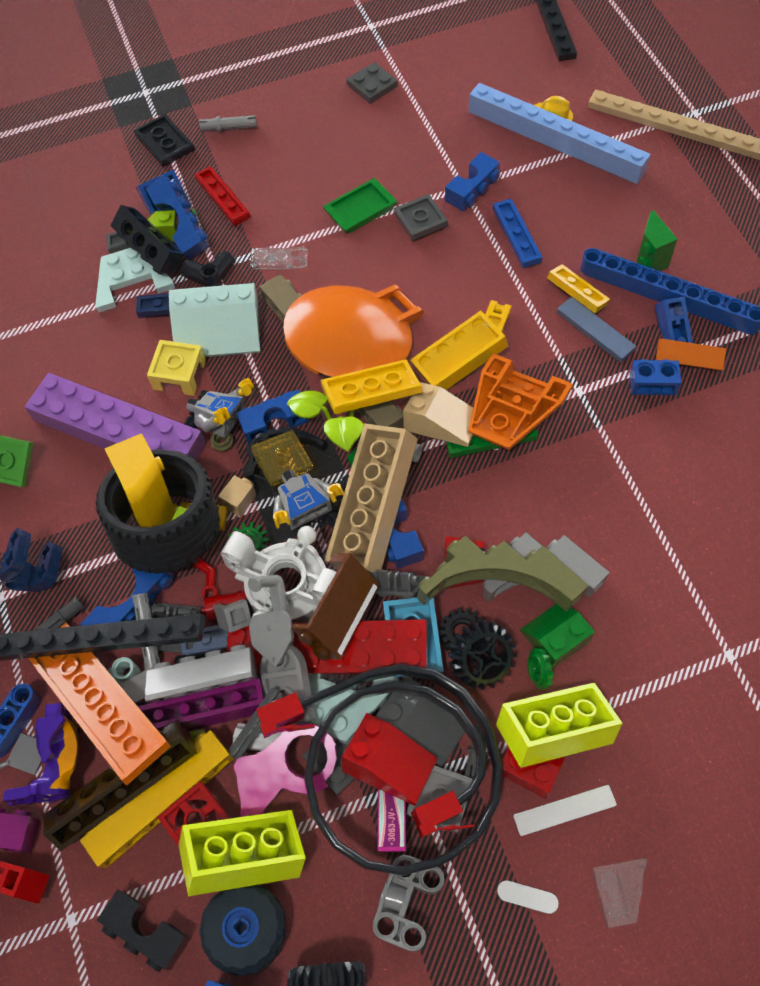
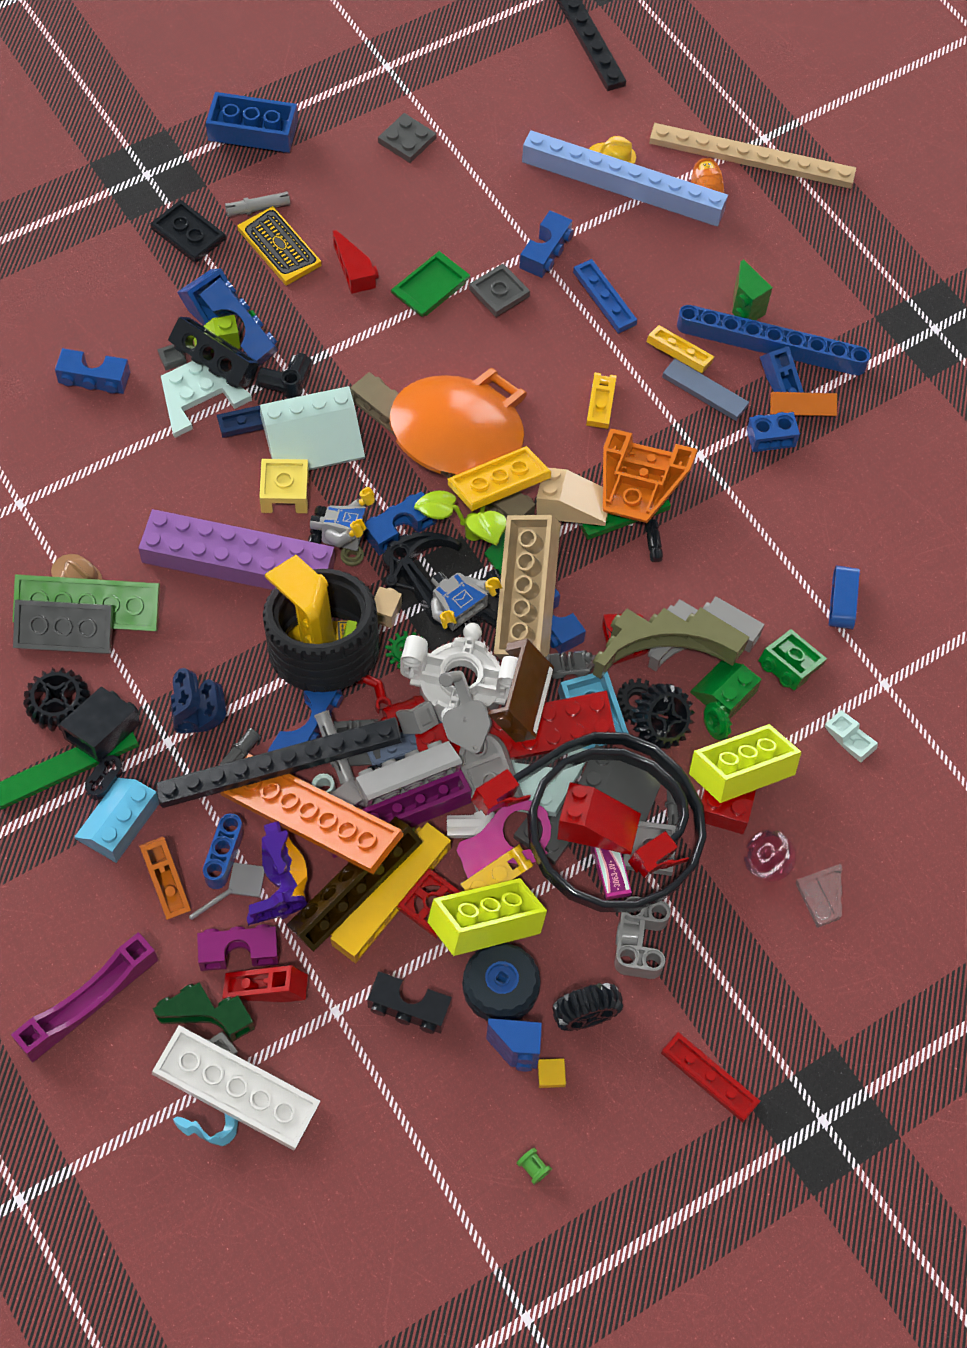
camera: 20 degrees left, 0 degrees up
(29, 242) = (109, 377): none -> blue arch
(222, 196) = (274, 290): red tile -> none
(237, 159) = (279, 245): none -> tile
(241, 56) = (252, 122): none -> blue brick
(252, 727) = (466, 813): dark grey axle -> none
(270, 798) = (499, 870): none -> yellow plate
(278, 258) = (357, 353): clear hinge -> none
(280, 455) = (423, 560): clear yellow plate -> none
(297, 182) = (355, 265): none -> red slope
(460, 351) = (576, 430): yellow slope -> none
(515, 467) = (654, 541): none -> black axle
(527, 897) = (744, 916): white sticker -> none
(564, 810) = (735, 853): white sticker -> none
(567, 836) = (770, 856): none -> clear pink cylinder
(632, 614) = (791, 660): none -> green plate
(636, 135) = (708, 174): none -> orange piece
(682, 709) = (850, 737): none -> light aqua slope
(700, 555) = (844, 597): none -> blue beam

